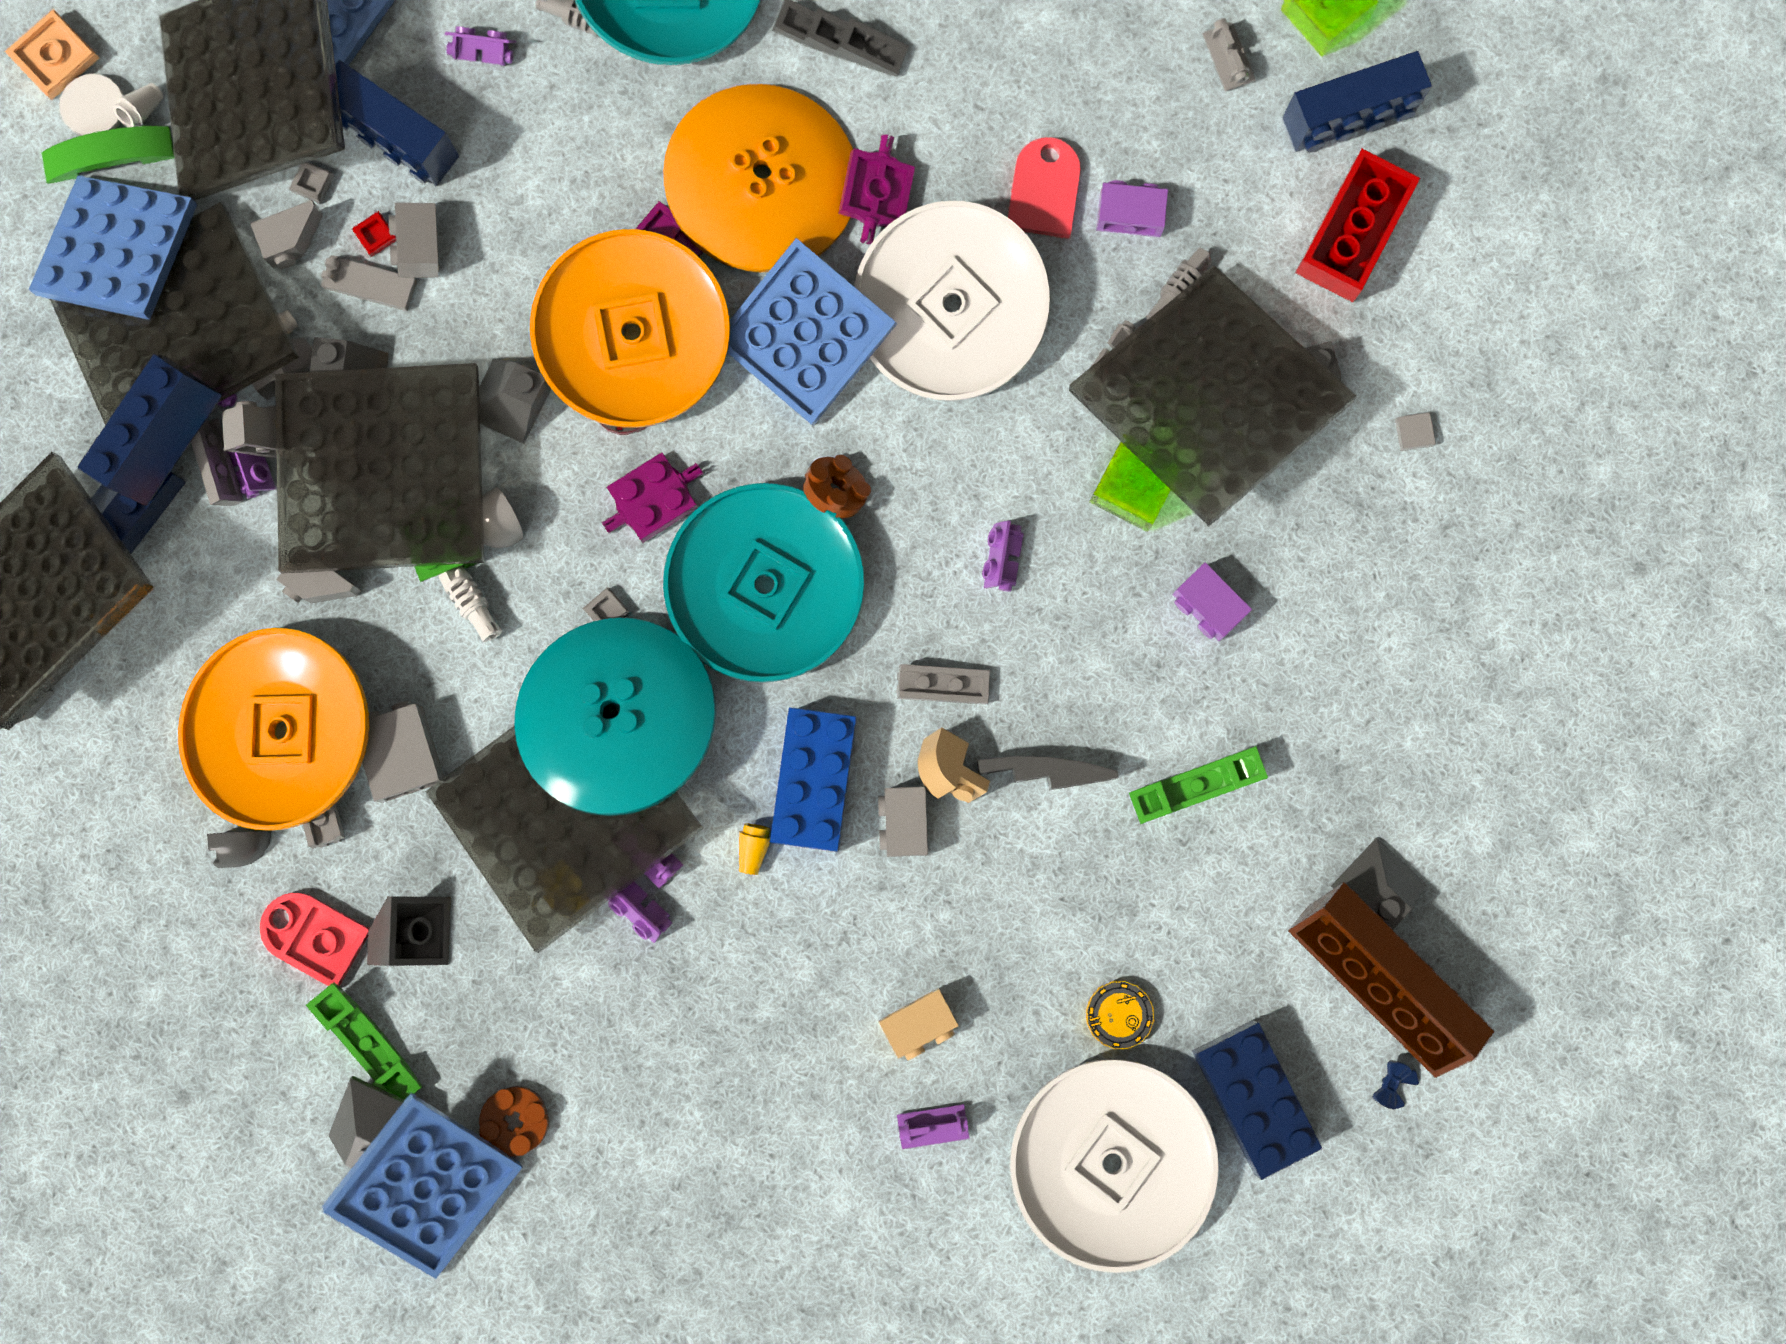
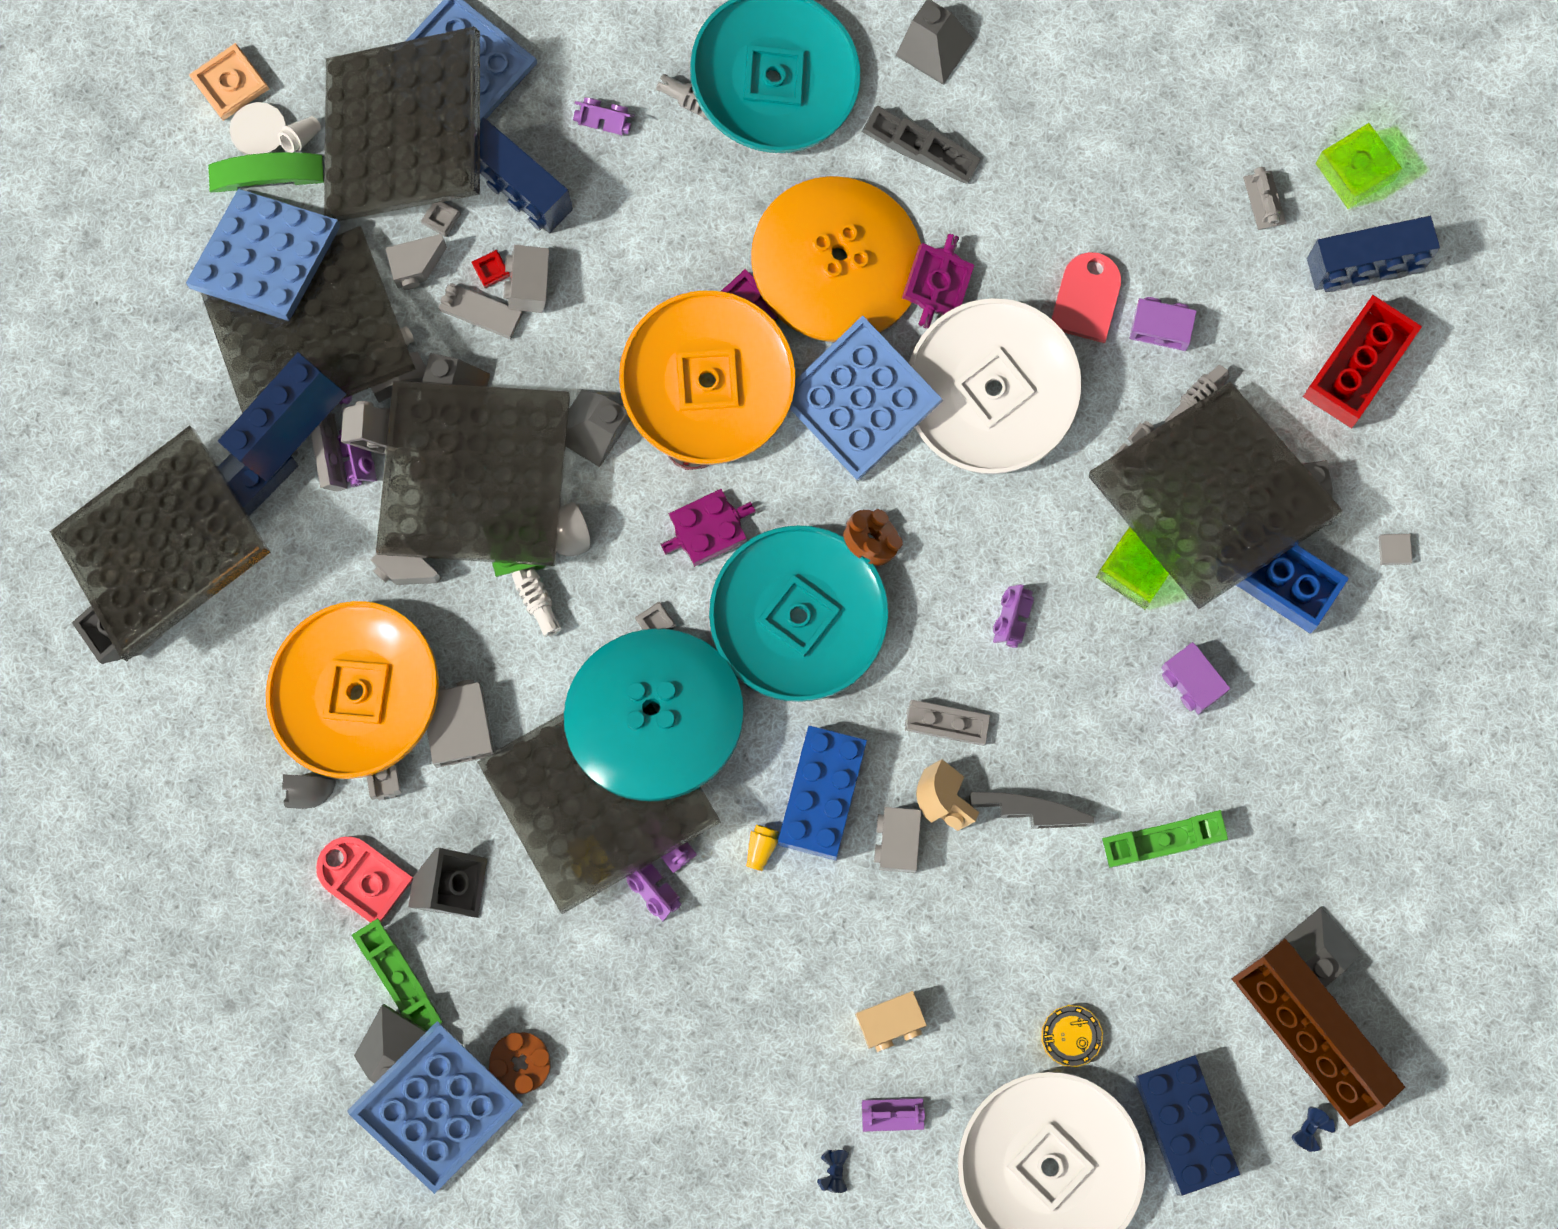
camera: 10 degrees right, 5 degrees down
(877, 1209) = (834, 1182): none -> dark blue piece
(1314, 487) = (1296, 587): none -> blue brick

